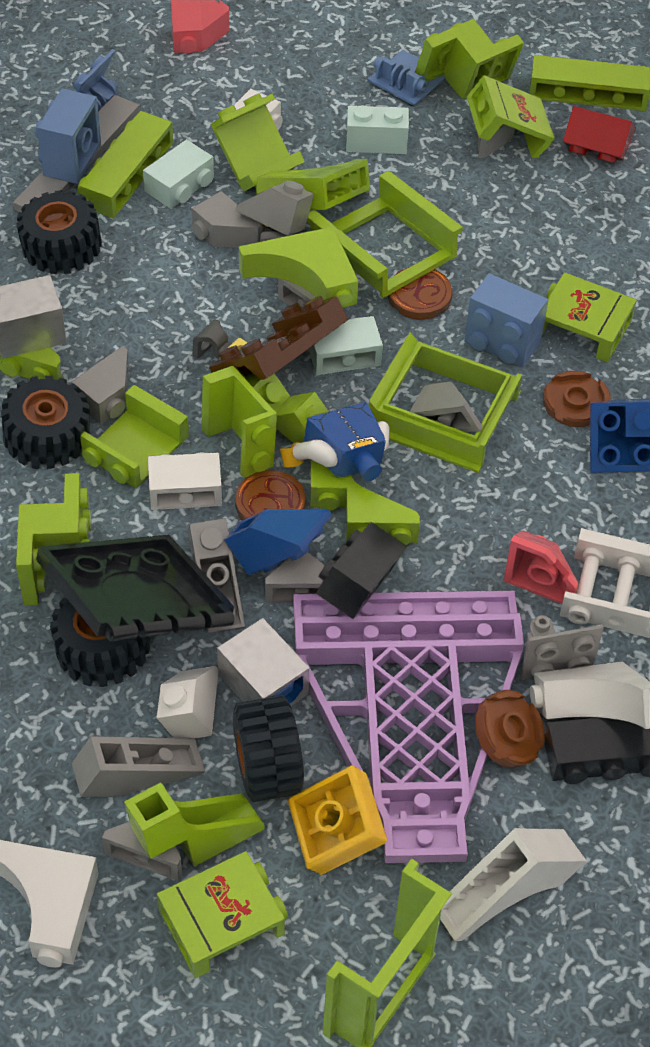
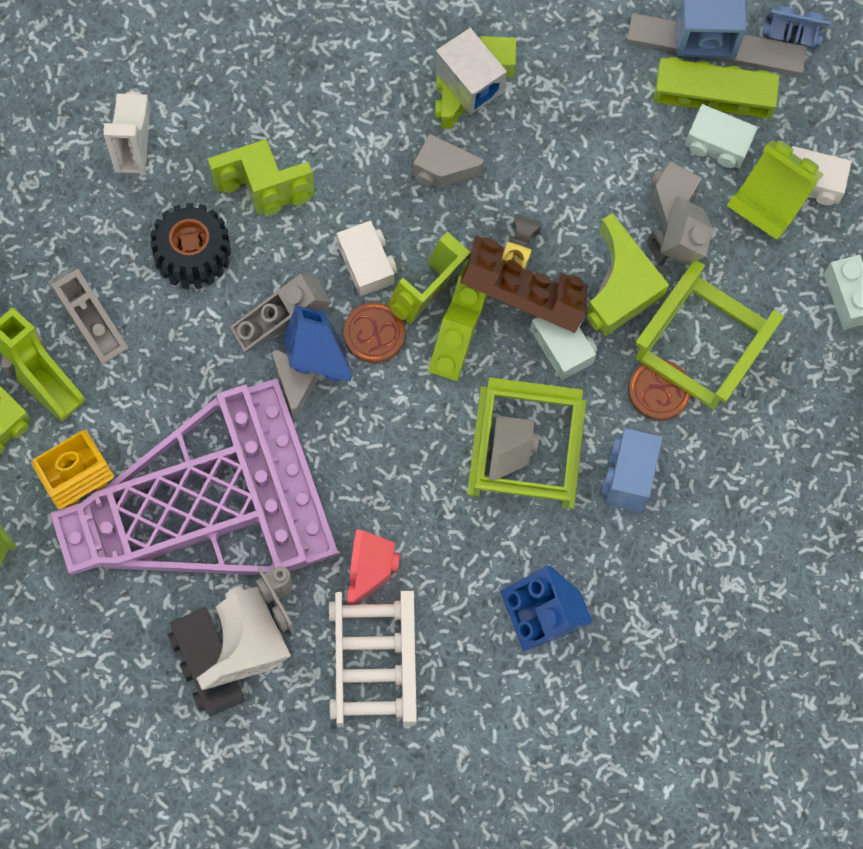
camera: 70 degrees right, 20 degrees up
(44, 421) = (385, 130): black wheel -> none
(59, 231) = (604, 63): black wheel -> none
(136, 587) = (221, 254): black hinge -> none
(142, 431) = (397, 206): lime panel -> none
(189, 703) = (153, 330): white slope -> none
(262, 665) = (192, 375): flat silver piece -> none
(268, 748) = (112, 399): black wheel -> none
(328, 184) = (739, 262): lime arch -> none
(342, 441) = (432, 372): blue torso -> none
(359, 569) = (305, 419): black brick -> none
(361, 505) = (377, 409): lime arch -> none
(509, 729) = (198, 579): dark orange tile -> none
(513, 870) = (63, 614): white arch -> none
(567, 404) = (575, 565): dark orange tile -> none
(590, 312) = (679, 543): lime panel -> none

